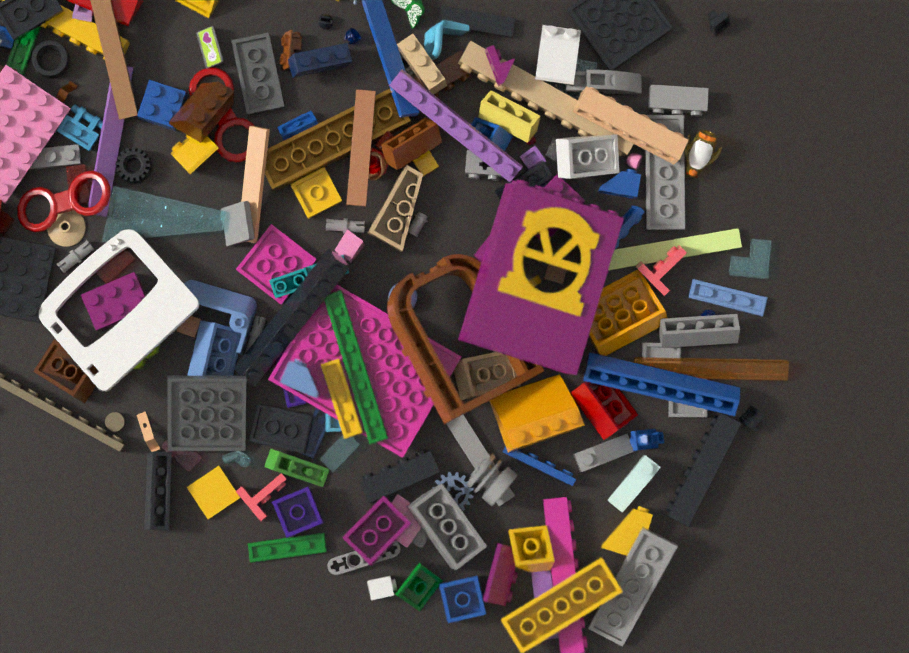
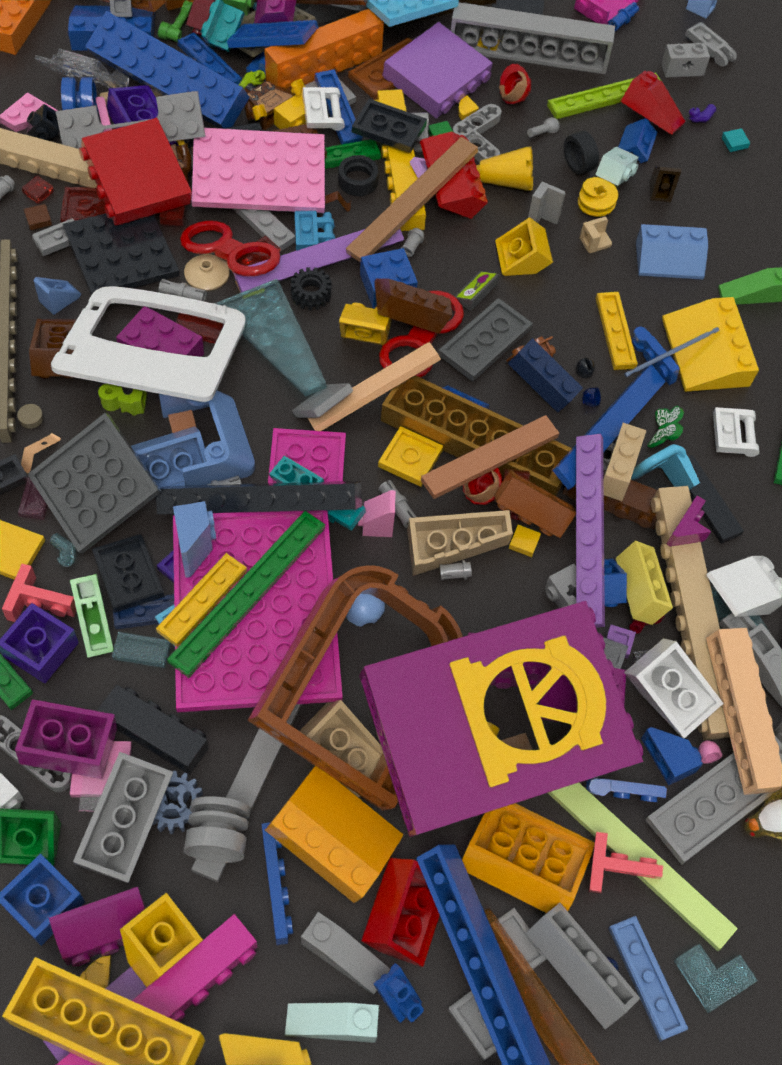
camera: 50 degrees right, 25 degrees down
(20, 344) = (55, 293): none -> medium blue slope
(139, 63) = (414, 238): none -> light grey pin
(521, 592) = (98, 972): none -> yellow tile

